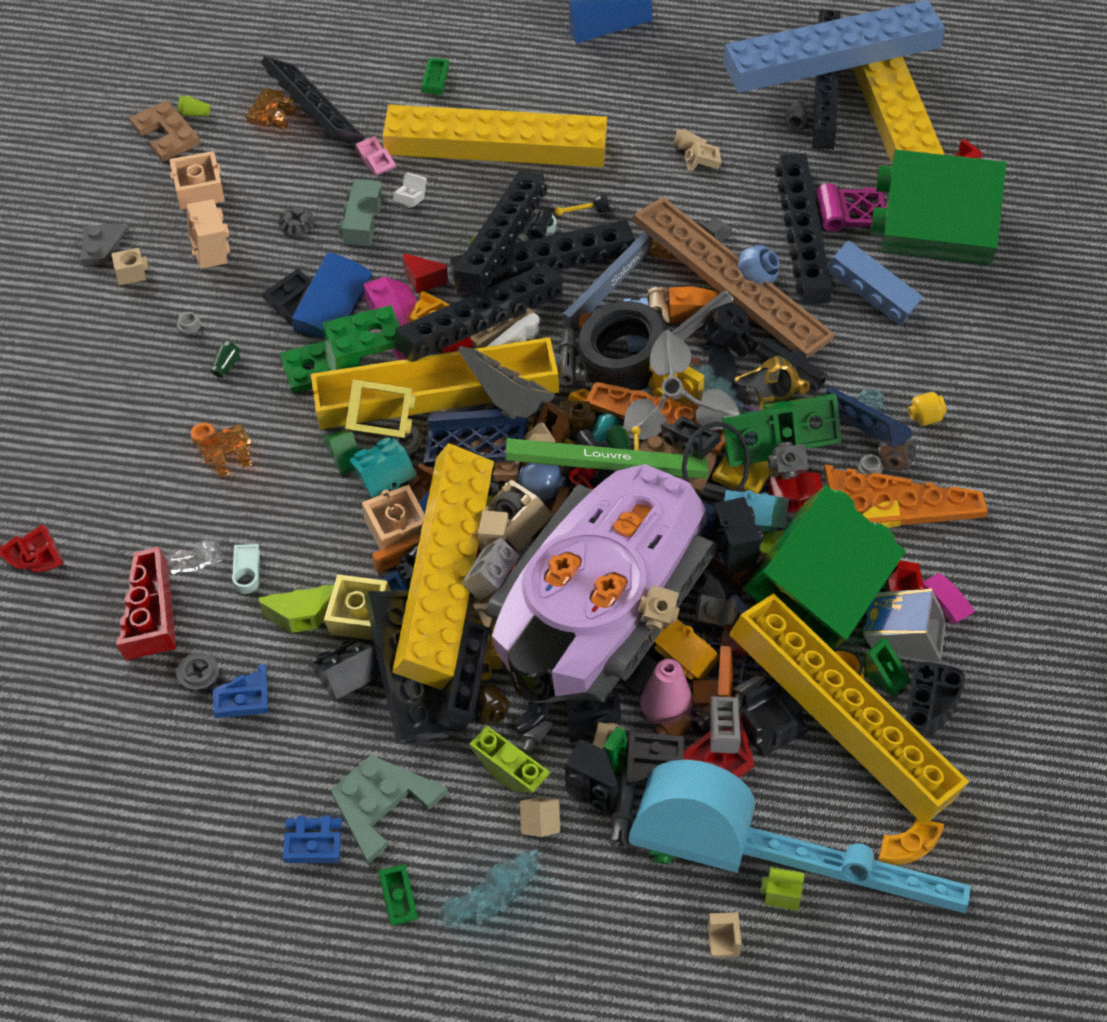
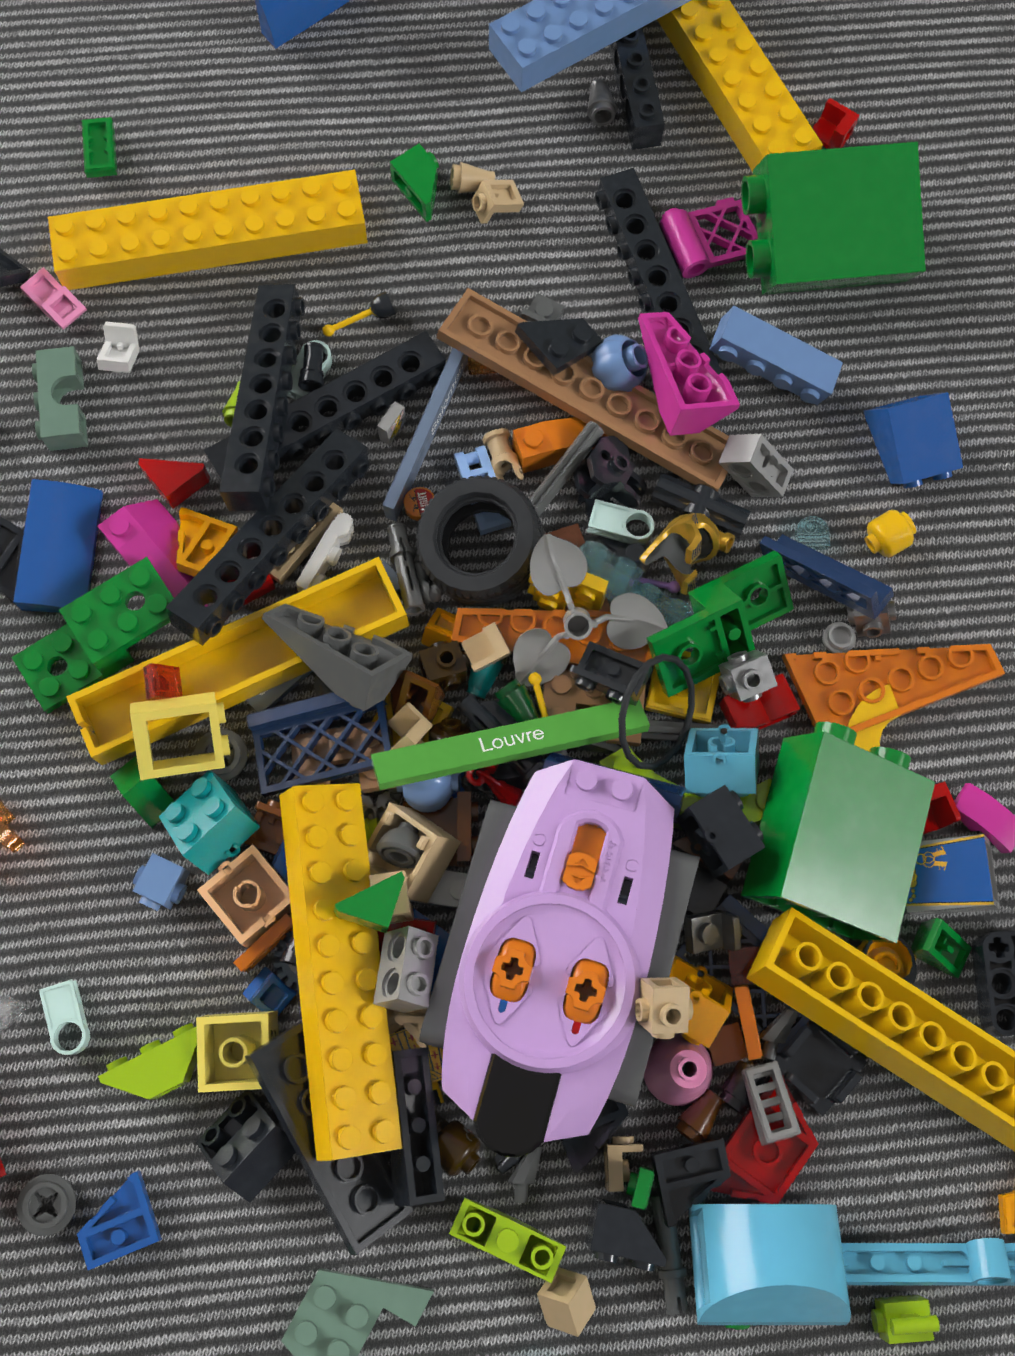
camera: 20 degrees left, 20 degrees up
(337, 502) = (160, 883): none -> medium blue brick
(378, 374) = (162, 681): none -> clear red plate
(479, 518) = (373, 905): none -> green slope
(585, 271) = (391, 423): none -> light grey tile
(609, 408) = (486, 647): none -> tan panel
(650, 133) = (417, 178): none -> green slope
(717, 241) = (559, 342): none -> black wing
(725, 360) = (611, 519): none -> light aqua piece
(800, 280) = (684, 383): none -> dark pink wedge
(838, 343) = (756, 465): none -> light grey brick
(964, 353) = (916, 438): none -> blue slope

